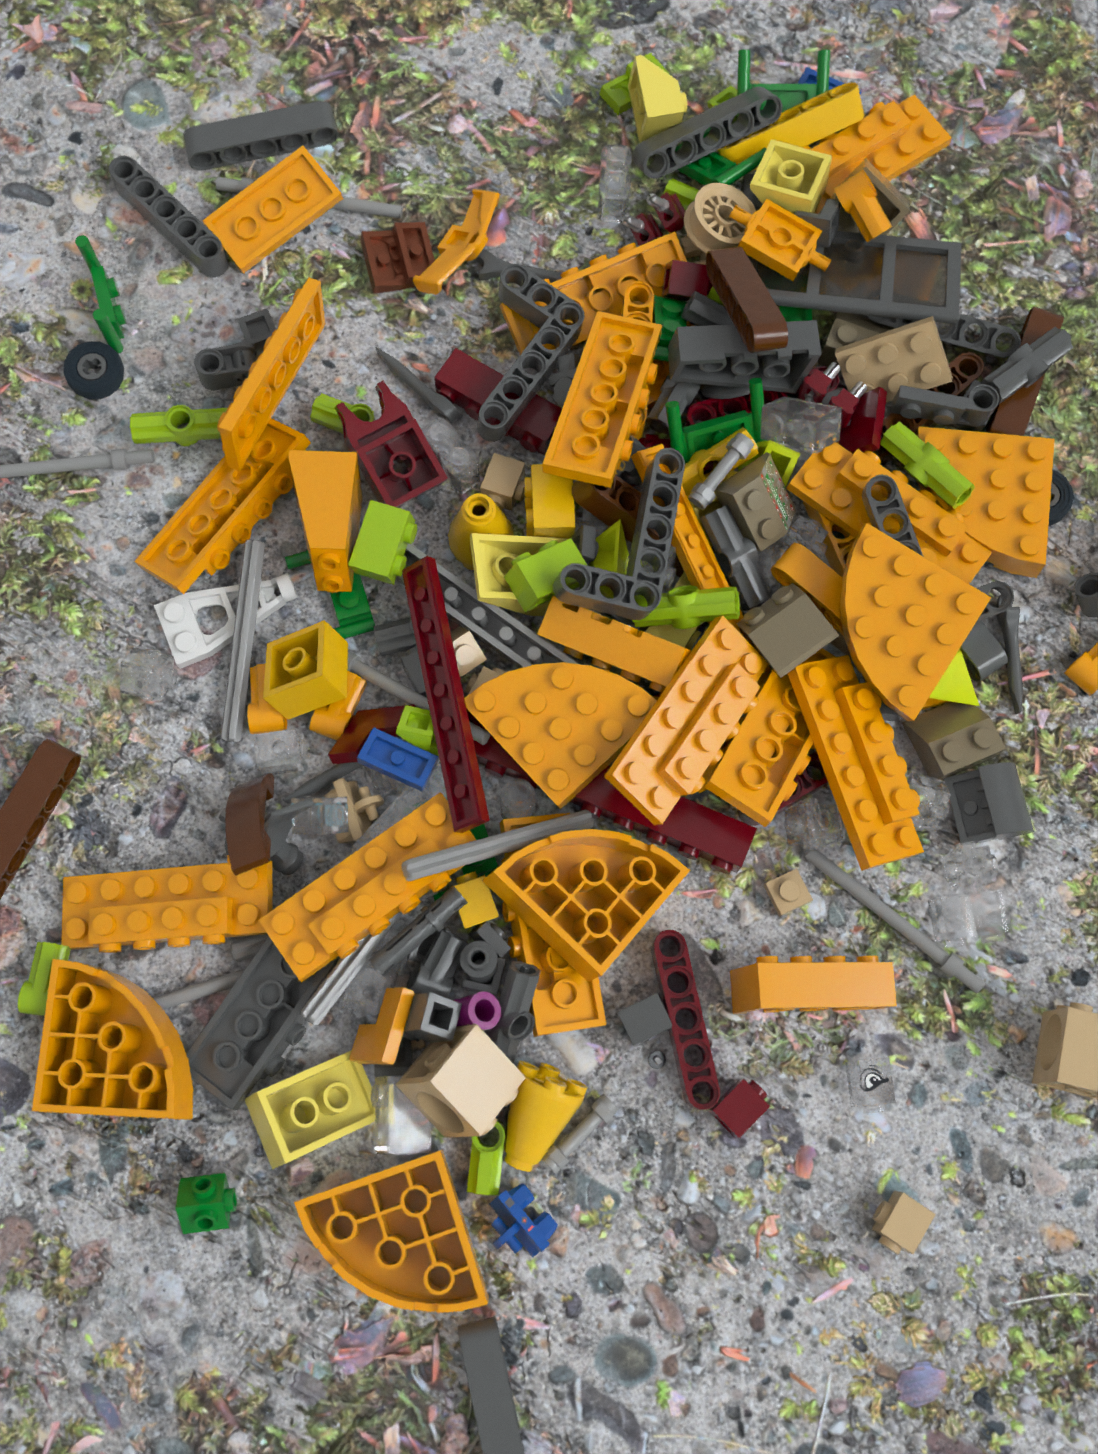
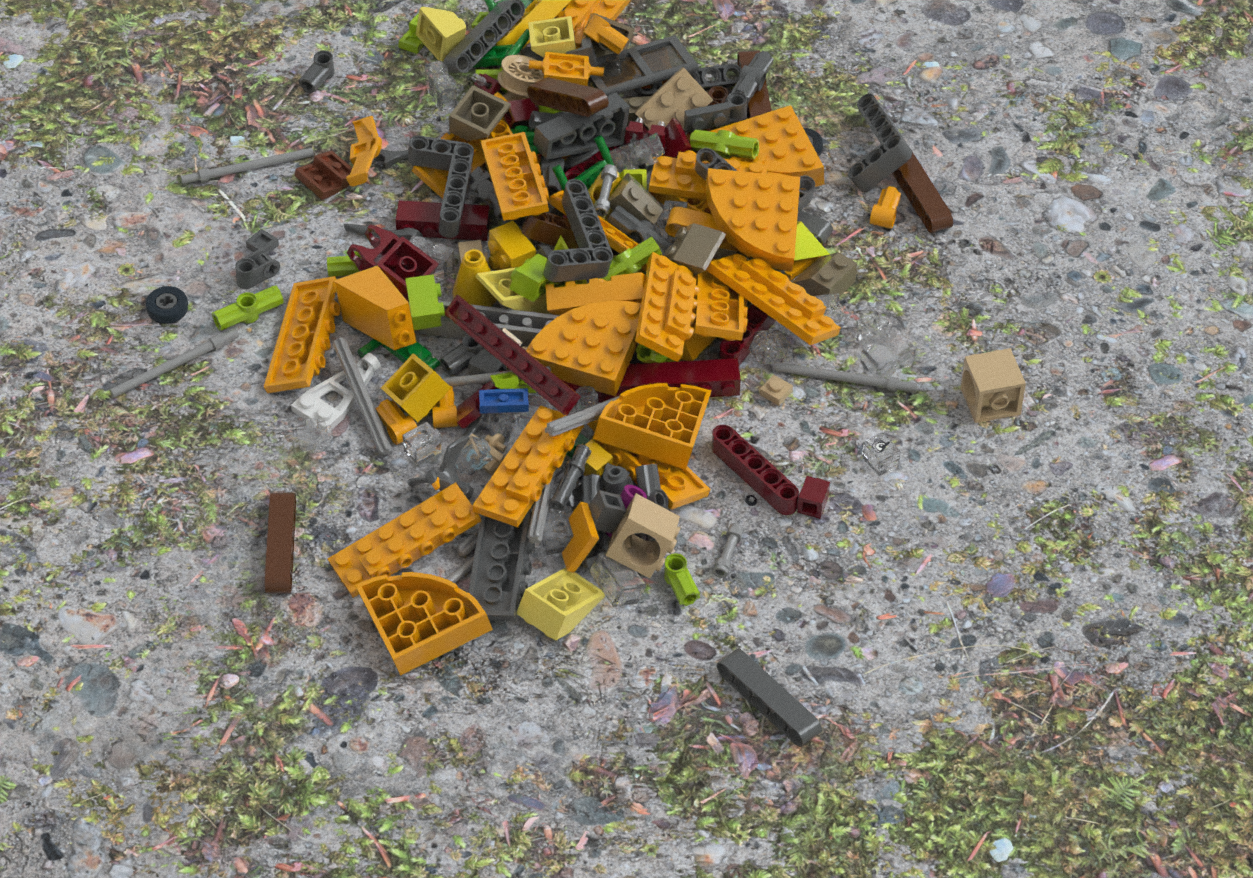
camera: 25 degrees left, 25 degrees down
(34, 992) = (353, 614): lime piece -> none
(110, 315) = (147, 259): green plate -> none
(168, 216) = (163, 207): dark grey beam -> none
(205, 1203) = (527, 668): green brick -> none
(244, 824) = (437, 461): reddish brown slope -> none
(260, 135) = (194, 144): dark grey beam -> none
(271, 374) = (290, 254): light orange plate -> none
(273, 209) = (231, 177): light orange plate -> none
(399, 1237) = (654, 633): light orange brick -> none
(477, 89) = (320, 70): none -> dark grey piece
(516, 1227) = (721, 602): blue hips -> none
(539, 1113) = (698, 542): yellow cone -> none
(619, 264) = (477, 114): none -> dark tan slope
(645, 1019) = (729, 475): dark grey panel -> none
(813, 985) = (816, 421): light orange wedge -> none
(901, 1223) = (940, 509): tan brick -> none
(989, 803) = (865, 295): dark grey brick -> none
(1009, 625) = (820, 209): dark grey piece -> none

